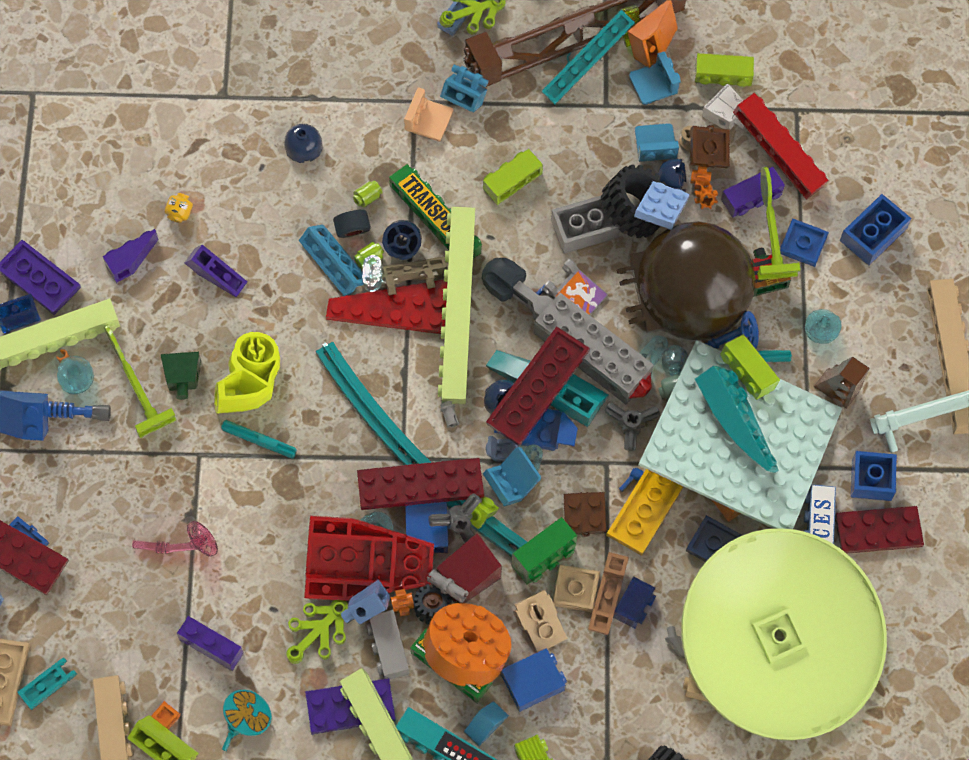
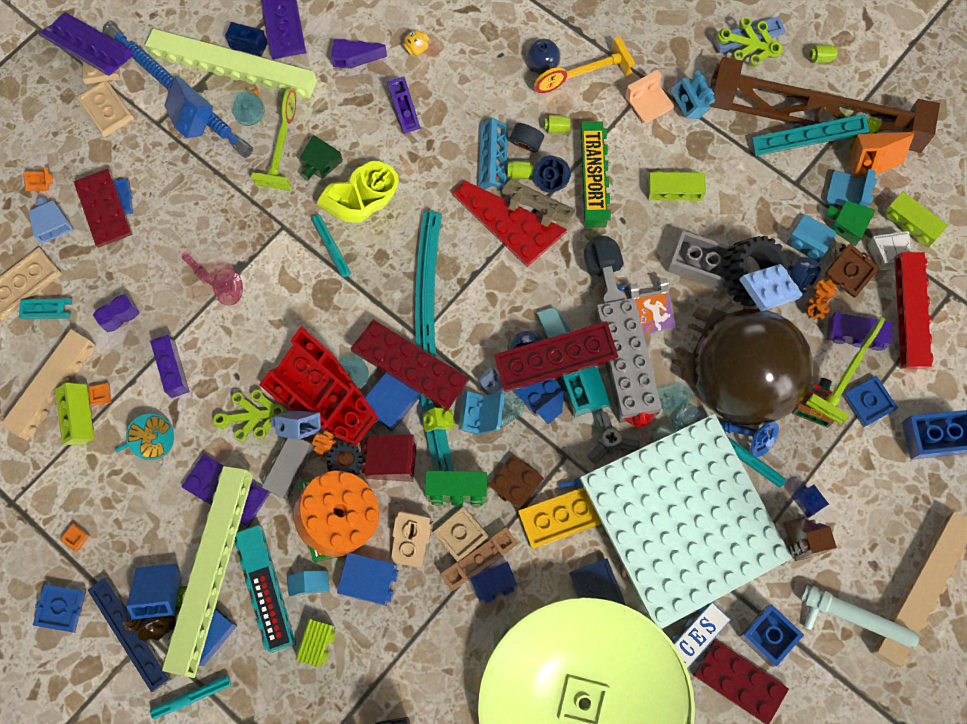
camera: 45 degrees right, 5 degrees up
(121, 632) = (119, 310): none -> dark purple brick
(368, 273) = (510, 184): clear light blue beam -> none
(371, 96) = (556, 76): none -> yellow piece
(447, 586) = (362, 457): light grey pin -> none
(449, 414) = (479, 329): light grey pin -> none
(458, 305) = (551, 251): yellowish green brick -> none
(458, 518) = (413, 412): dark grey bush -> none
(675, 106) = (850, 221): none -> green torso
(735, 414) = (692, 500): teal wedge -> none
(749, 367) = (738, 468): lime brick -> none
(816, 332) = (839, 479): clear light blue piece -> none
(820, 353) = (810, 500): none -> clear blue brick

